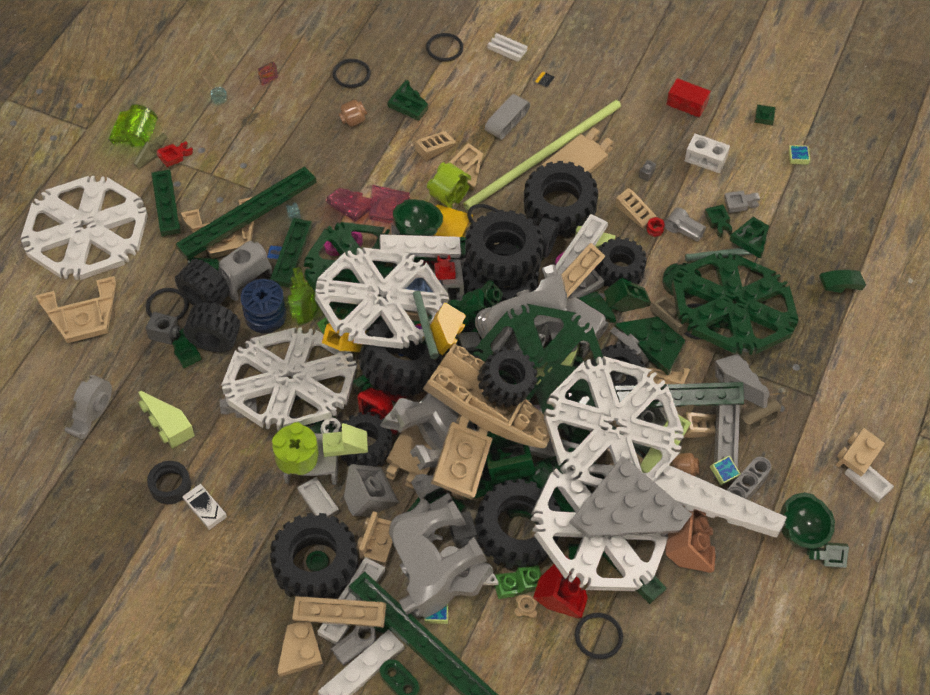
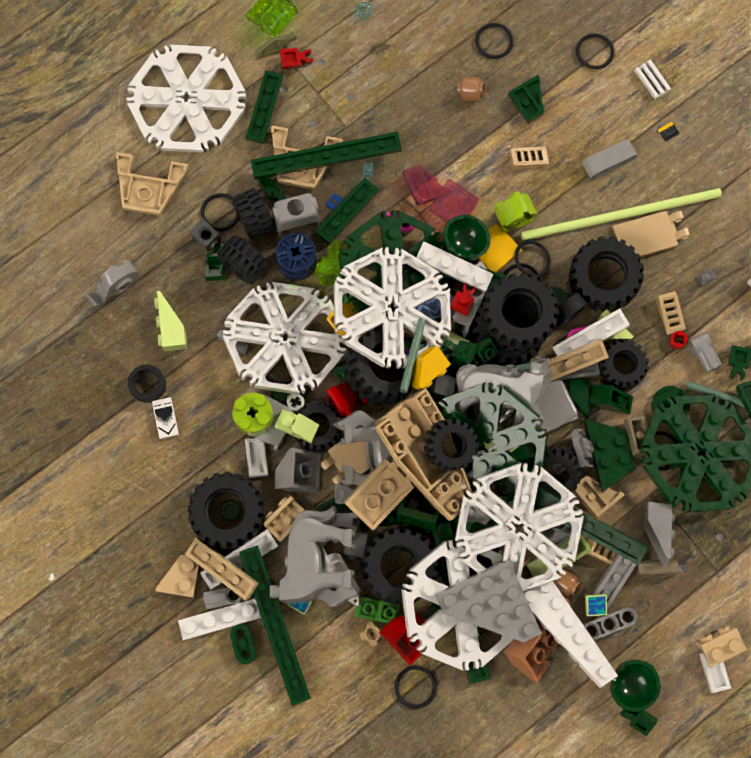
camera: 25 degrees right, 20 degrees up
(267, 73) = (417, 8): tile -> none
(469, 161) = (545, 194): tan wing -> none

